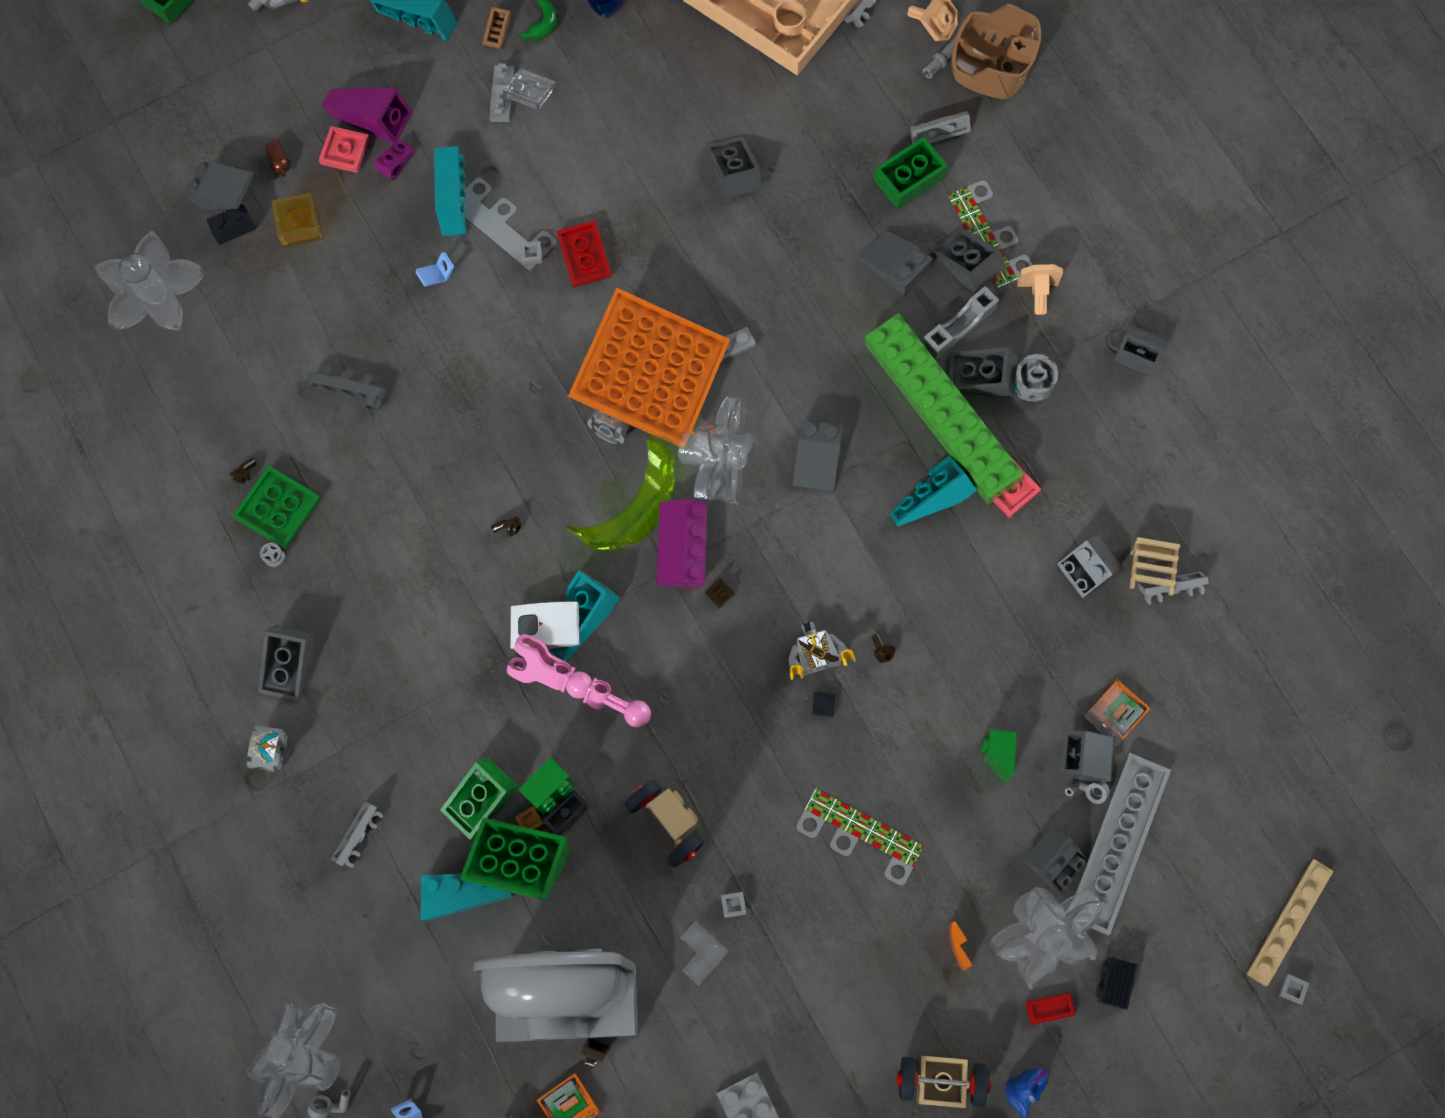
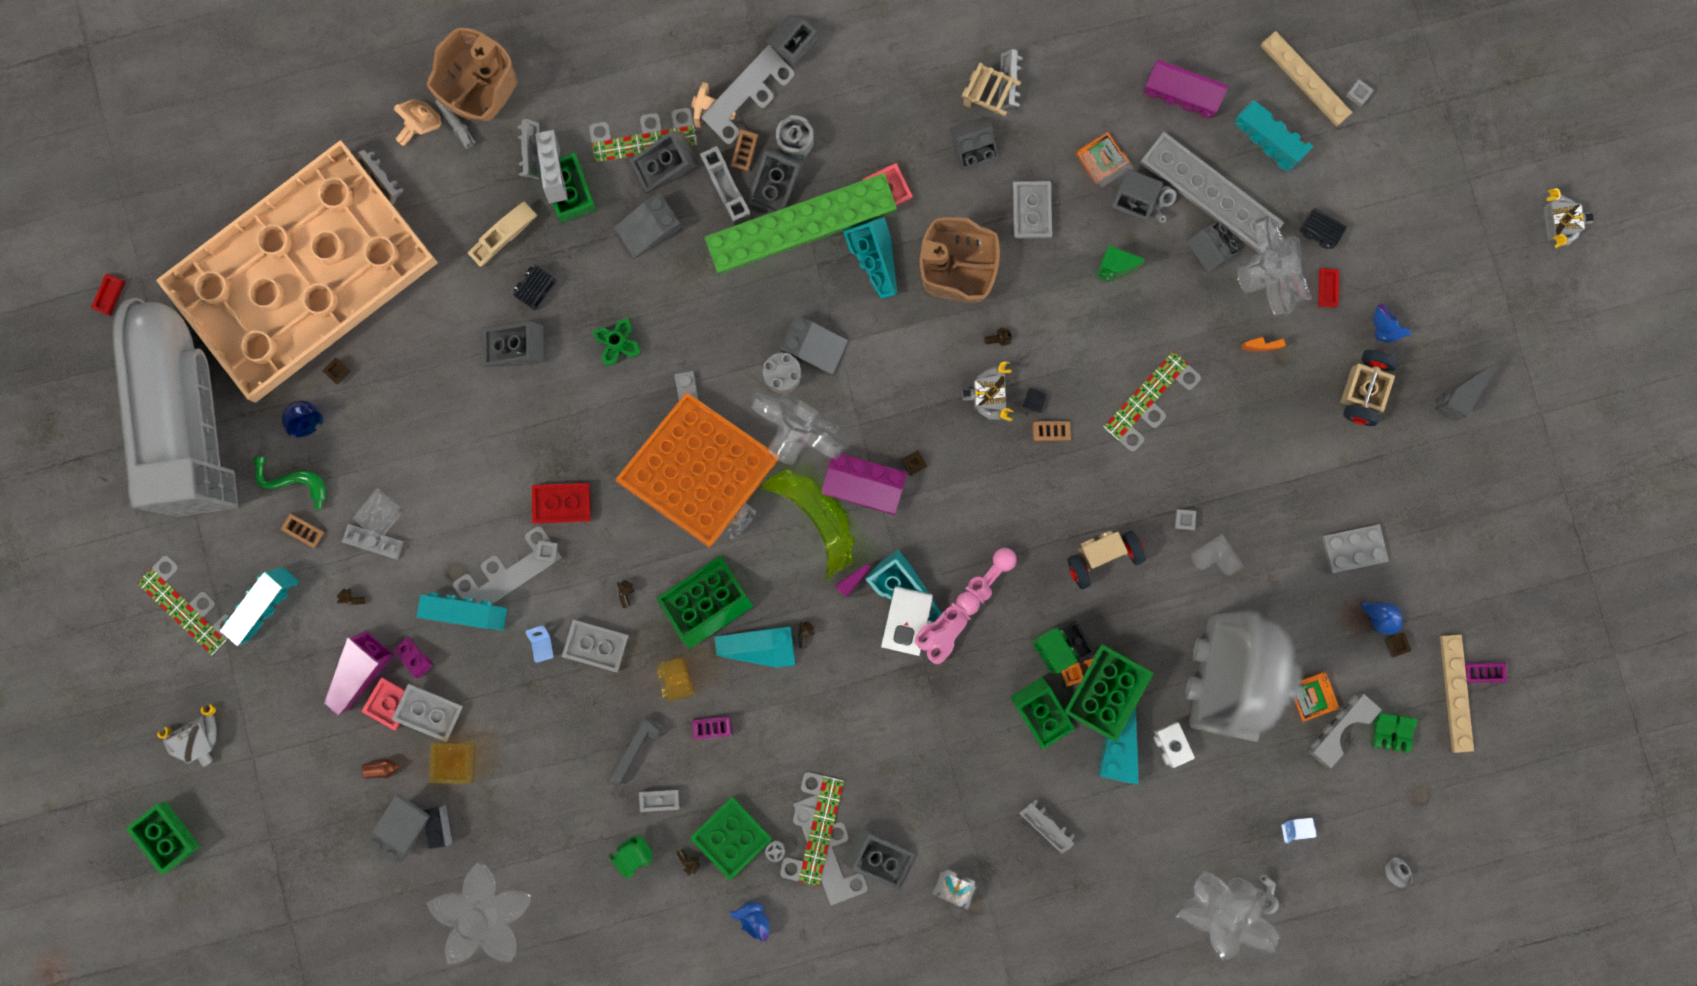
camera: 80 degrees left, 10 degrees up
(197, 550) = (753, 920): none -> blue hair
(237, 412) = (631, 855): none -> green brick
(287, 602) = (835, 885): none -> light grey piece
(301, 426) = (659, 800): none -> light grey plate
(309, 596) = (821, 826): none -> piece
(342, 184) = (427, 712): none -> light grey plate
(393, 473) = (727, 724): none -> magenta slope
(427, 407) = (675, 679): none -> clear yellow brick
(440, 82) = (345, 596): none -> dark brown plate
(446, 324) = (595, 646): none -> light grey plate
(481, 945) = (1173, 744): none -> white piece
(483, 490) = (761, 647): none -> teal wedge
(512, 337) = (624, 589): none -> dark brown plate
(515, 417) = (704, 602): none -> green slope
(573, 559) = (848, 584): none -> magenta slope
(662, 15) = (336, 370): none -> dark brown plate
(764, 262) = (621, 332): none -> green plant
(778, 431) = (782, 373): none -> light grey brick
(789, 712) = (1035, 431): none -> medium nougat slope
(798, 170) = (534, 287): none -> black brick
(845, 124) = (501, 233): none -> tan slope
(912, 148) = (550, 167): none -> light grey arch
(952, 593) = (967, 266): none -> medium nougat piece
(1015, 341) = (755, 137): none -> medium nougat slope
(1035, 647) = (1032, 210): none -> light grey plate
(1074, 314) = (744, 86): none -> light grey piece
(1206, 895) = (1272, 136): none -> teal wedge
(1226, 780) = (1185, 89): none -> magenta slope

